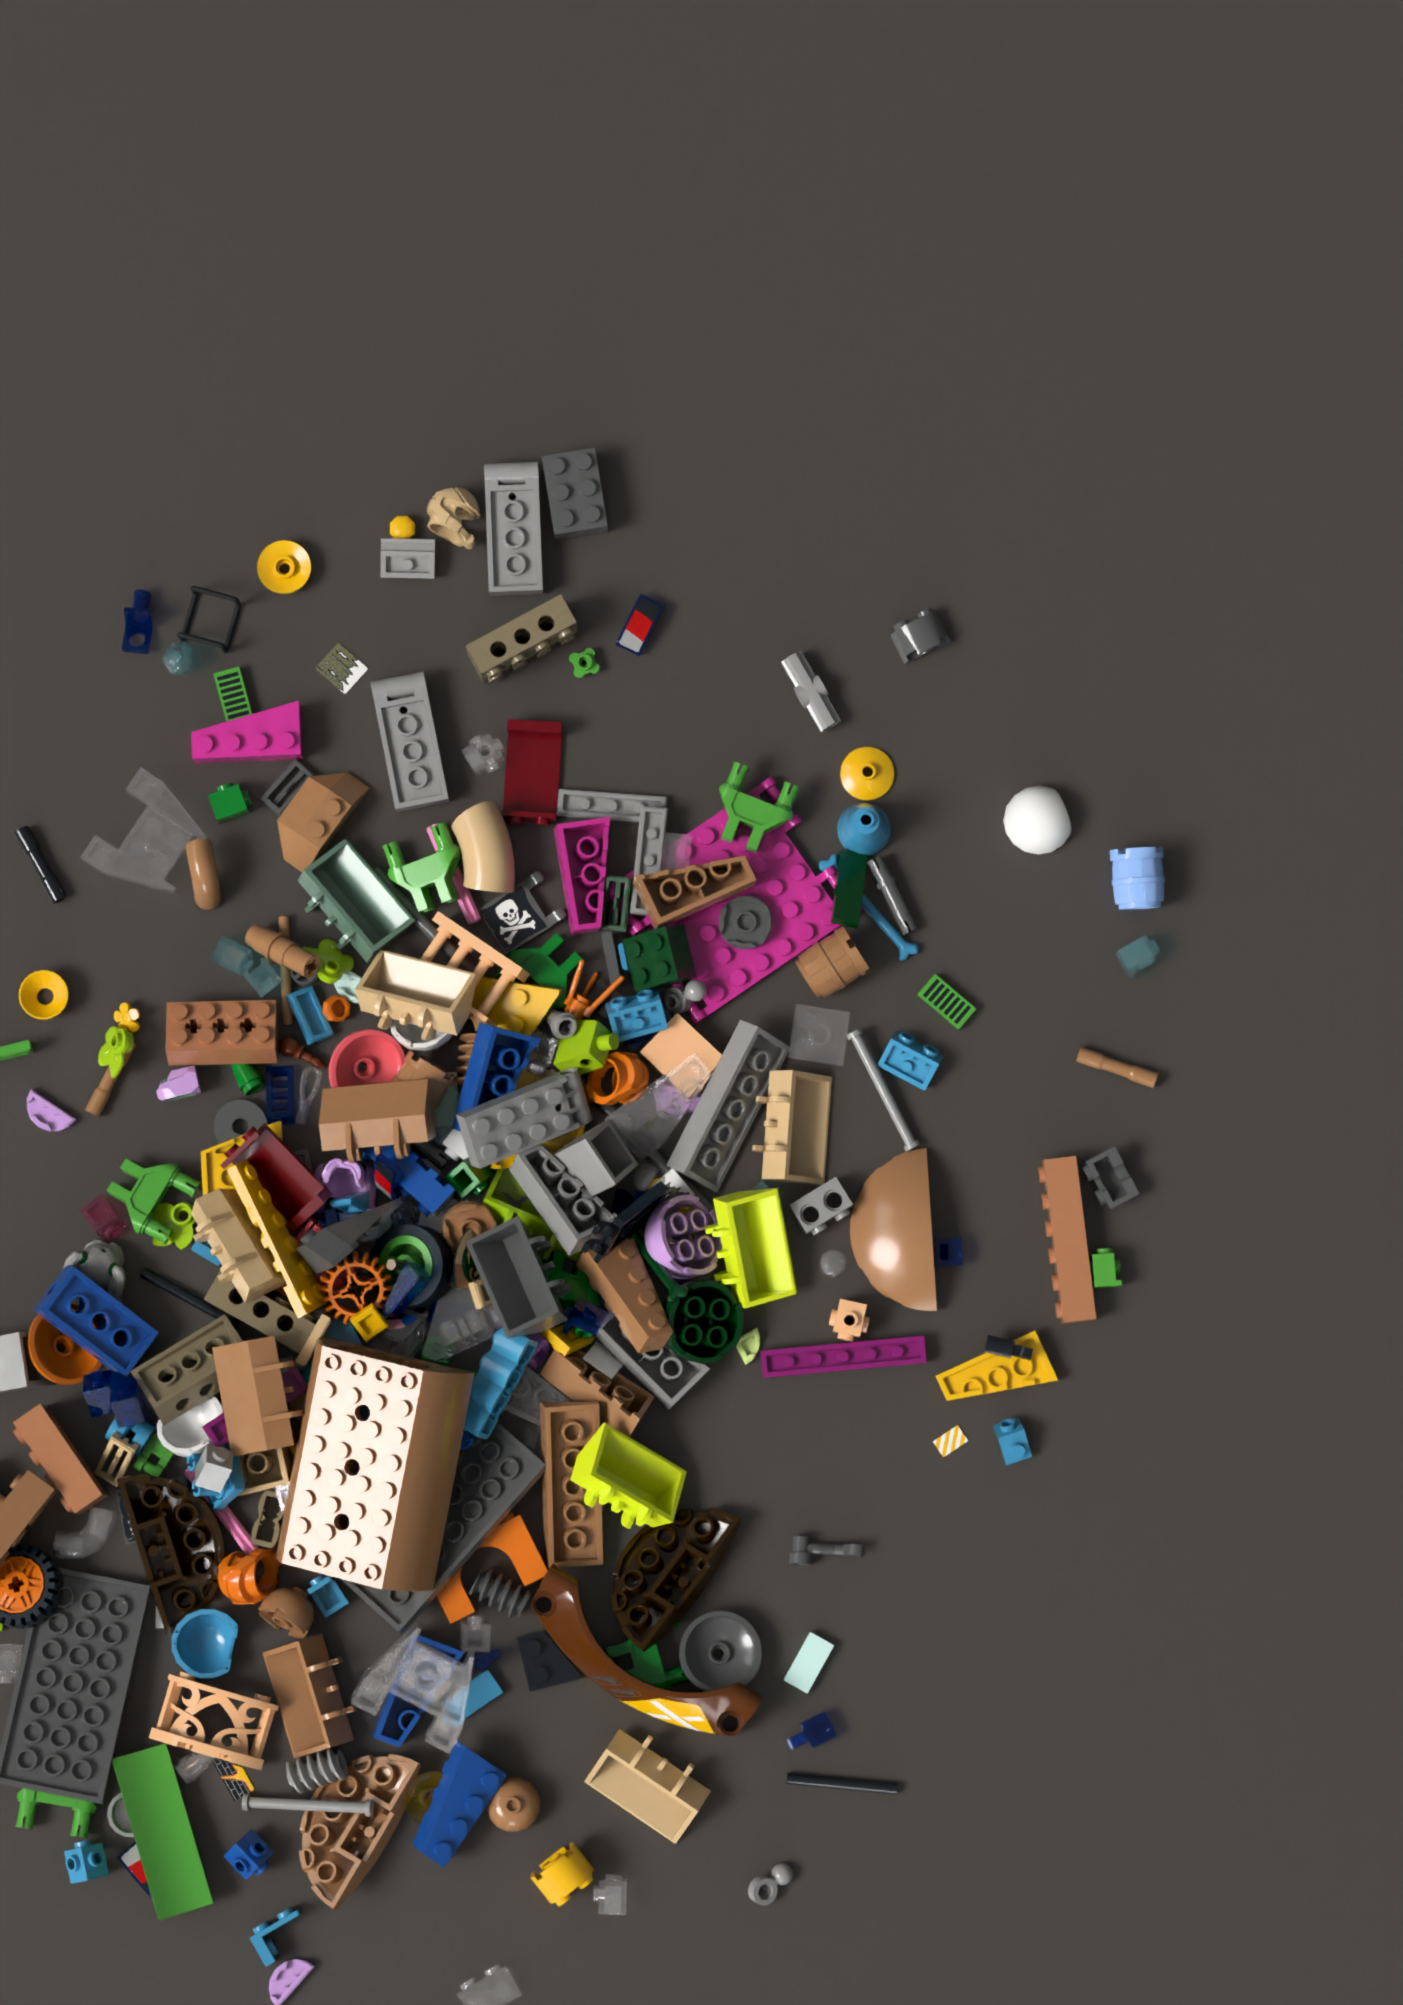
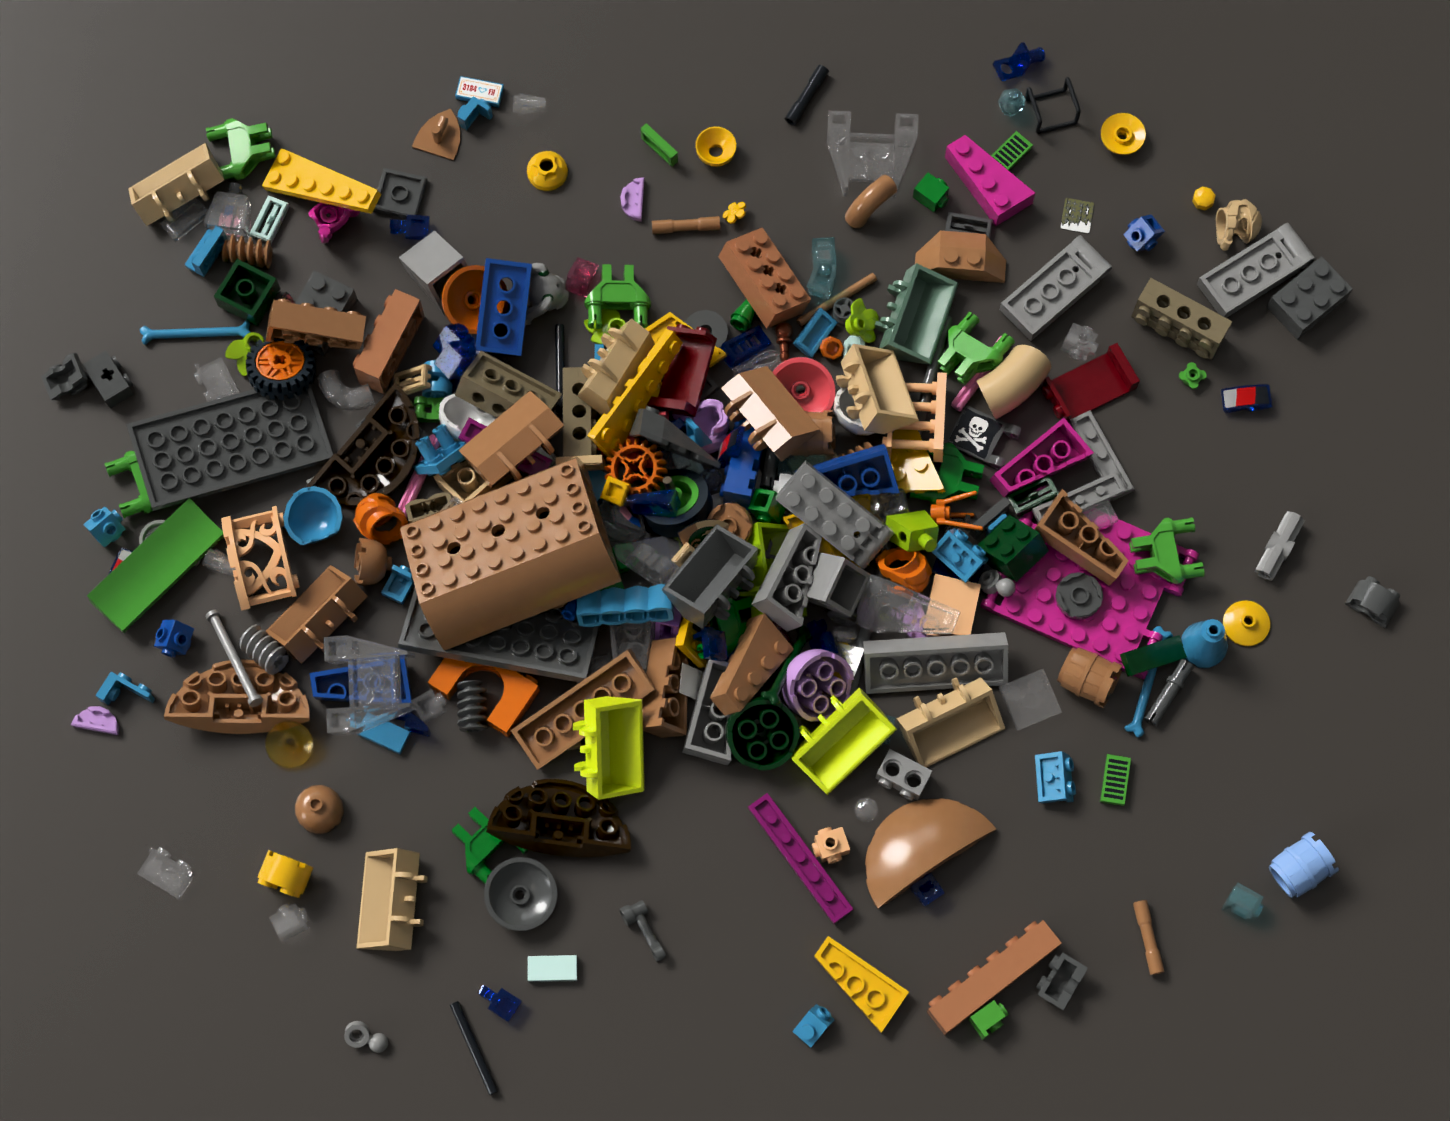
camera: 60 degrees right, 10 degrees down
(112, 1052) = (713, 214): lime plate -> none
(179, 1084) = (709, 273): lavender rock -> none
(213, 1468) = (442, 441): light grey brick -> none
(234, 1779) = (226, 598): sticker -> none
(282, 950) = (849, 283): medium nougat piece -> none
(406, 616) = (1143, 233): none -> blue brick
(407, 558) = (1185, 212): light grey plate -> none
(457, 1803) = (297, 764): blue wedge -> none
(544, 1662) = (439, 770): black wing -> none
(561, 1023) = (917, 509): light grey cone -> none
(625, 1223) = (800, 629): black tile -> none
(689, 1710) = (466, 902): reddish brown panel -> none
(749, 1345) = (766, 783): yellowish green tile -> none
(883, 1089) = (1019, 770): light grey bar -> none
(950, 1441) = (785, 978): sticker -> none
(1006, 1348) = (881, 976): black bar -> none
(1037, 820) = (1295, 767): white cylinder -> none

